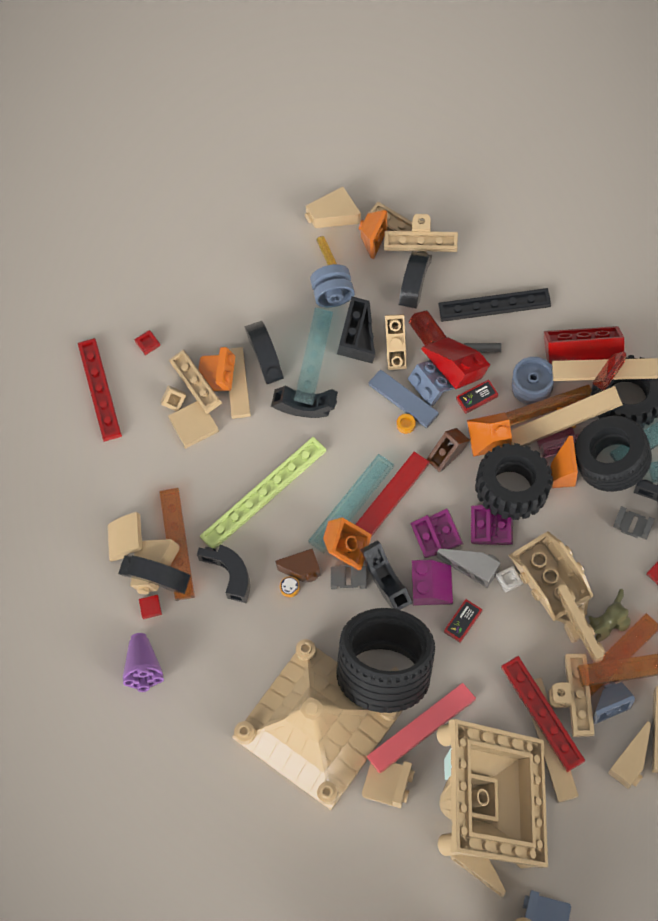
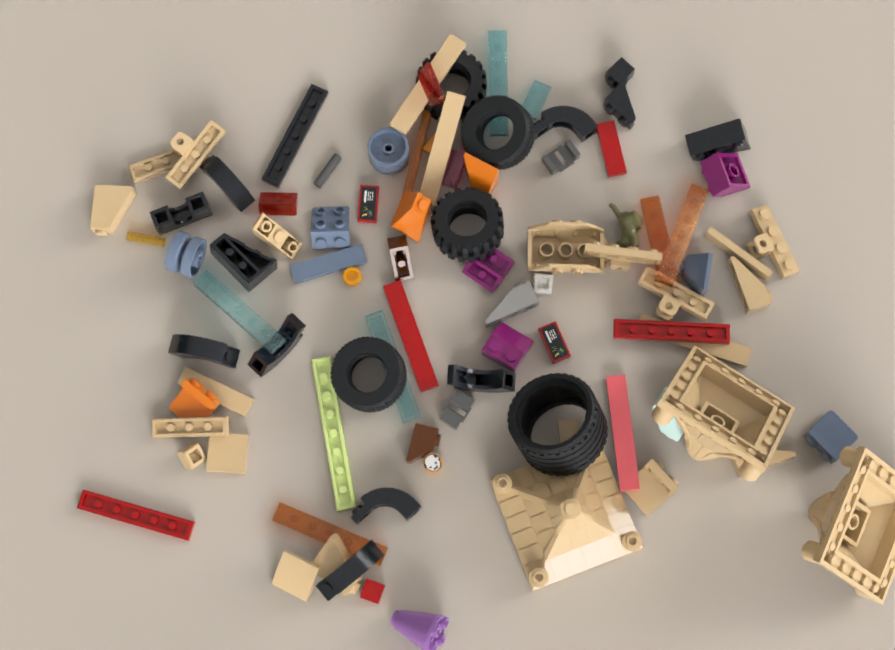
camera: 60 degrees left, 10 degrees up
(147, 342) = (120, 446): red tile -> none
(322, 463) = (350, 356): none -> black tyre
(345, 541) = (429, 391): orange slope -> none
(373, 231) = (155, 188): orange slope -> none
(376, 270) = (193, 210): none -> black arch
(436, 533) = (466, 315): magenta slope -> none
(457, 361) = (327, 199): red slope -> none
(583, 343) = (383, 90): red slope -> none

